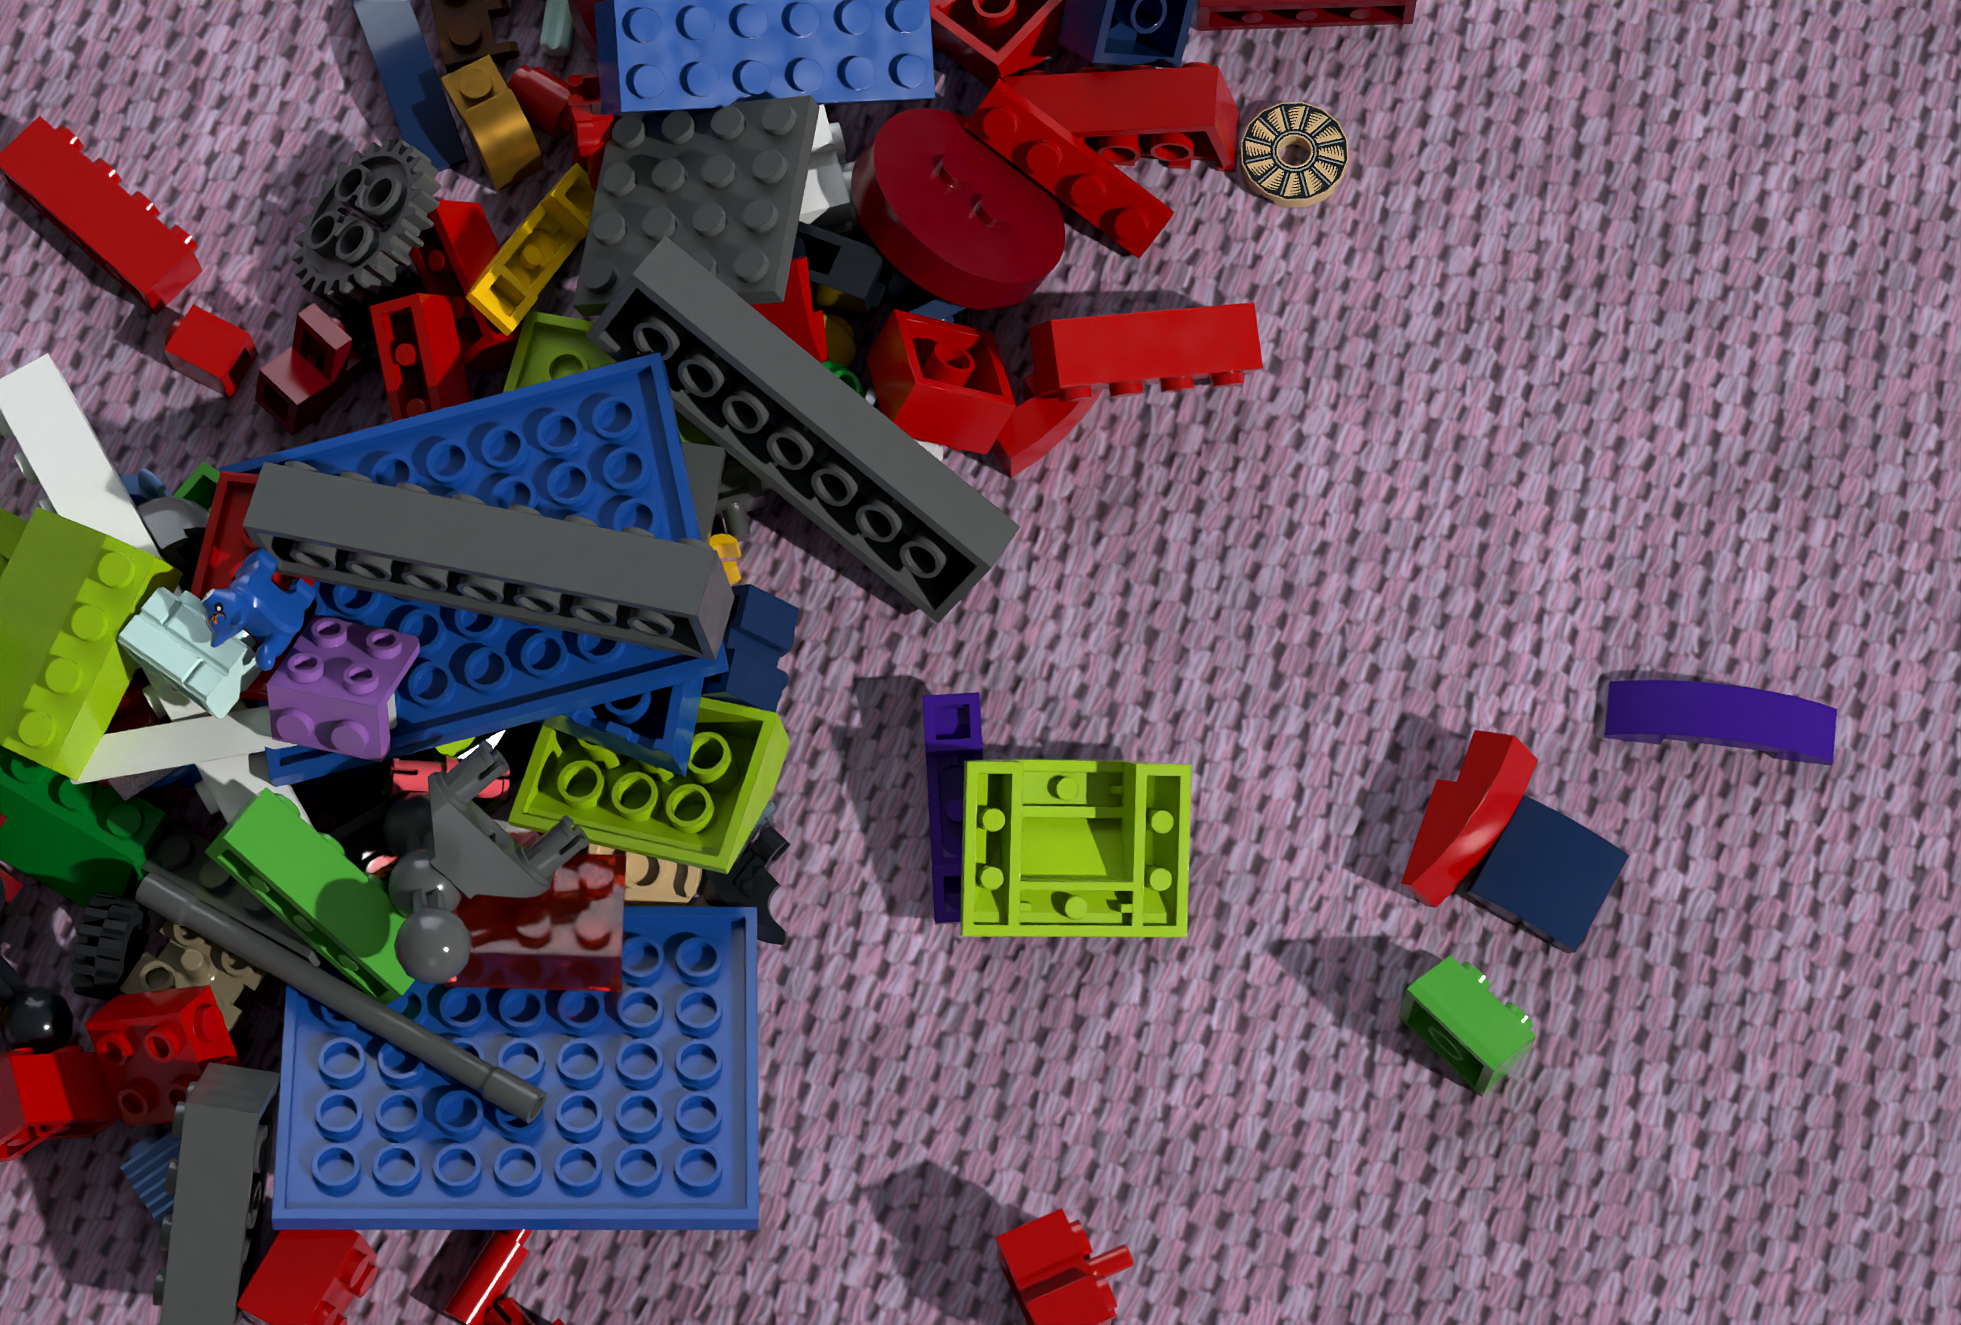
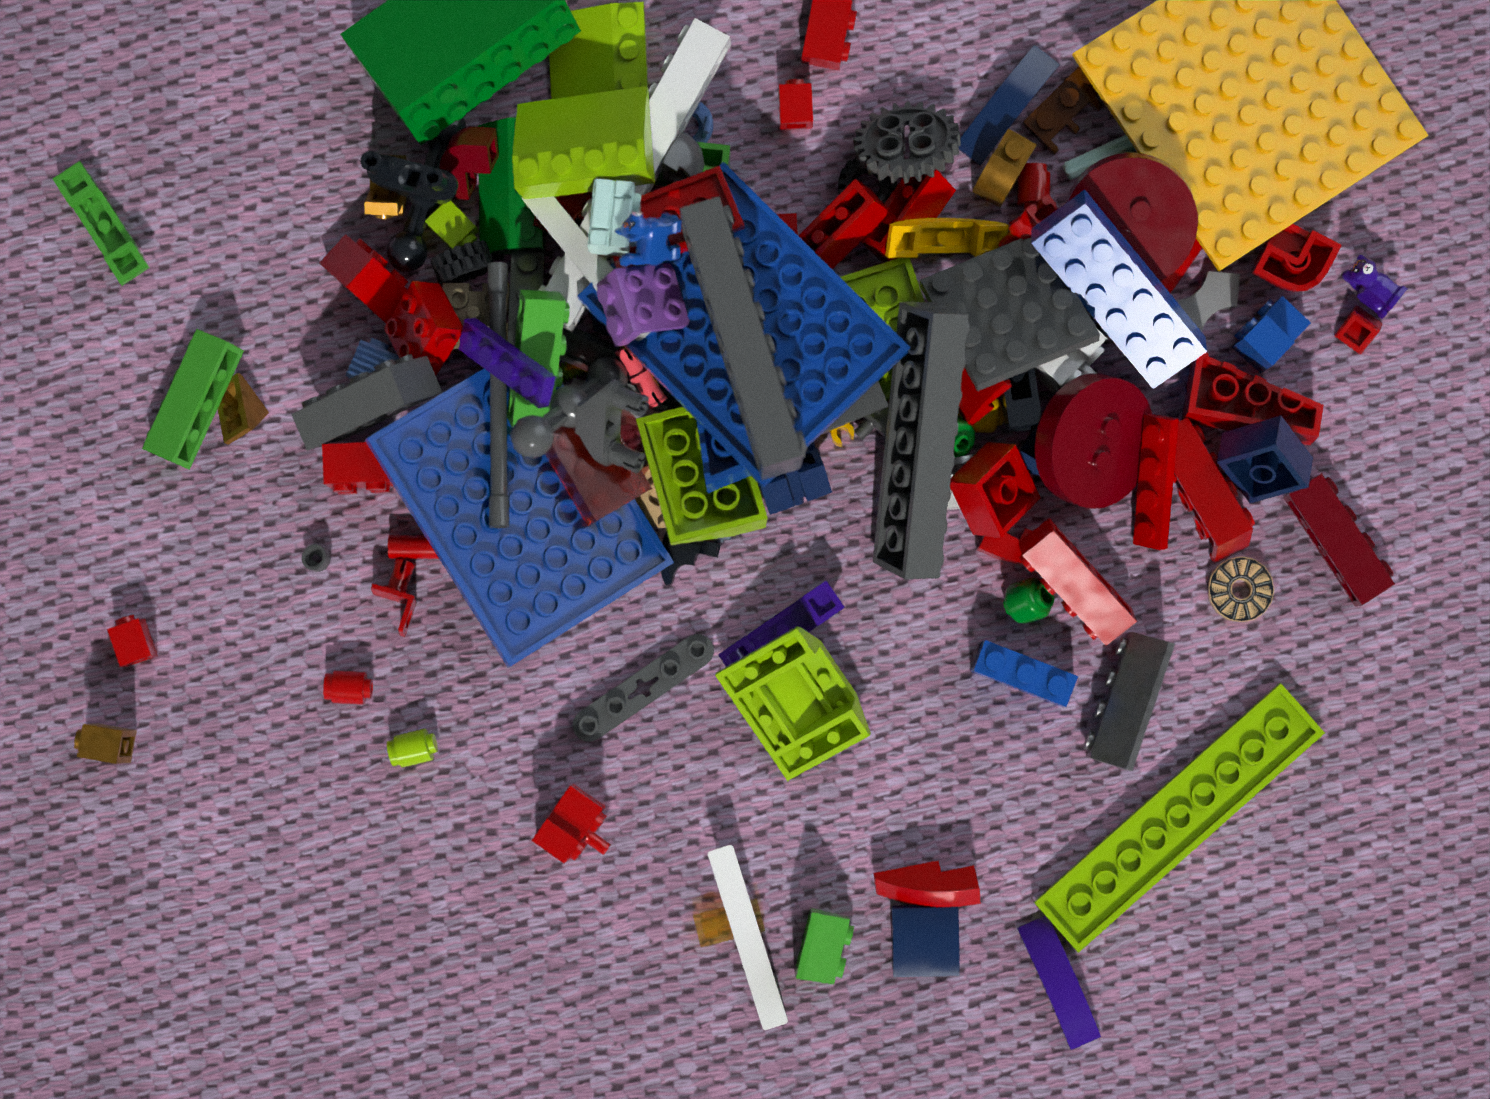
camera: 55 degrees right, 15 degrees up
(42, 934) = (452, 225): none -> lime brick
(299, 935) = (507, 363): none -> dark purple plate
(310, 373) = (812, 163): dark red brick -> none
(916, 1121) = (616, 706): none -> dark grey piece
(1130, 438) = (1027, 600): none -> green head
(1233, 506) = (1024, 673): none -> blue brick
(1350, 1148) = (714, 925): none -> clear yellow plate
(1363, 381) = (1129, 700): none -> flat silver slope
(1389, 1127) = (747, 937): none -> white sticker
(1575, 423) = (1178, 817): none -> lime plate

